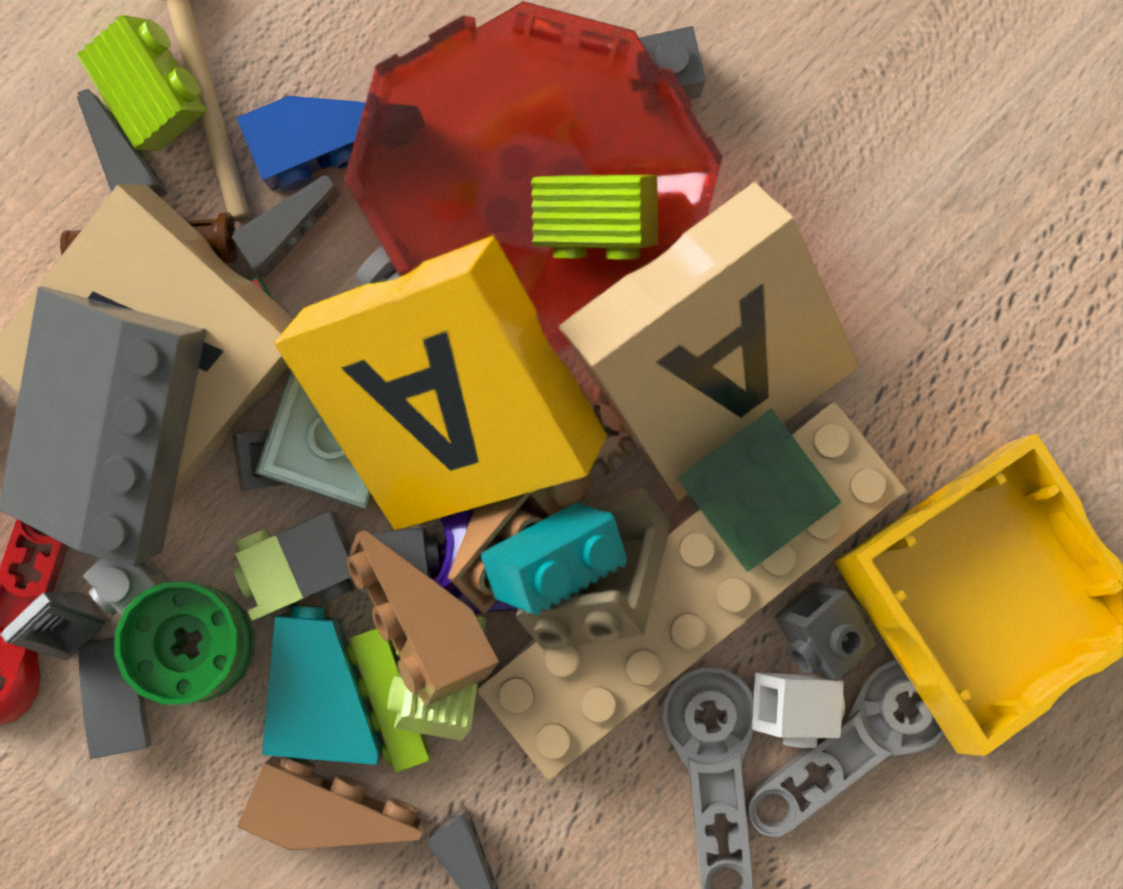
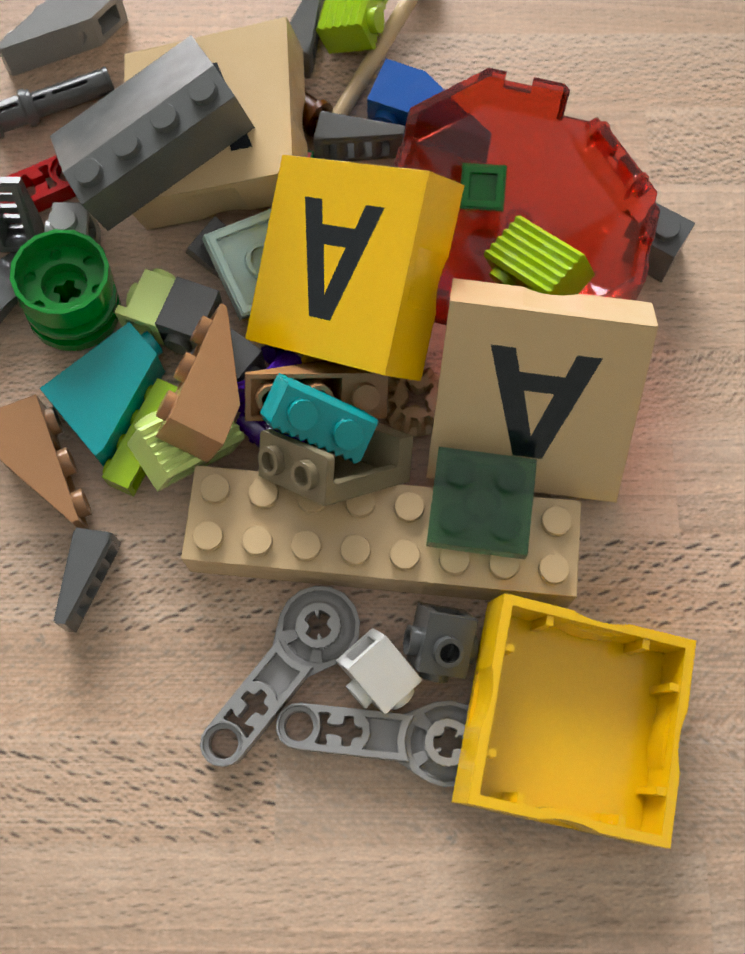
camera: 50 degrees right, 15 degrees down
(463, 171) = (483, 187): none -> green tile

